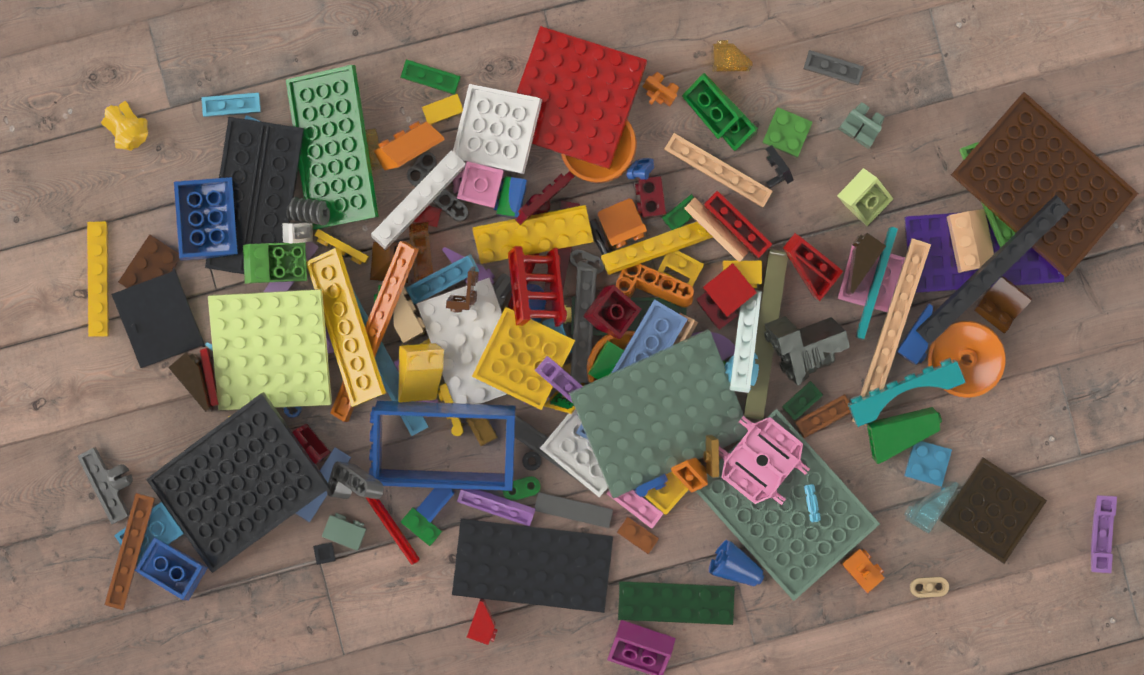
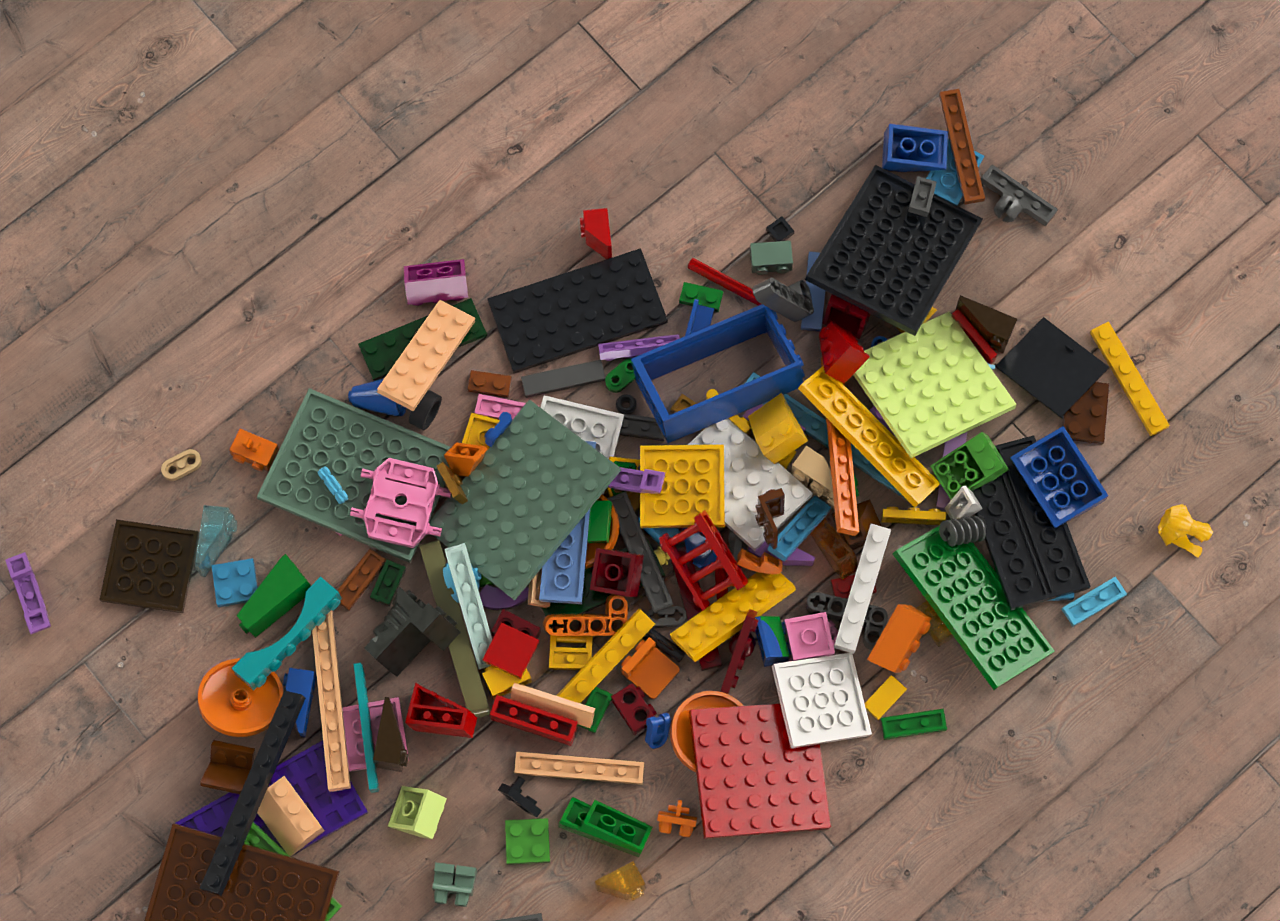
camera: 155 degrees right, 15 degrees down
(188, 521) = (922, 196): none -> dark grey plate
(331, 412) = (840, 352): none -> red wedge
(490, 262) = (765, 564): none -> orange slope
(682, 579) = (426, 355): none -> light nougat plate
(704, 535) = (425, 410): none -> black tyre

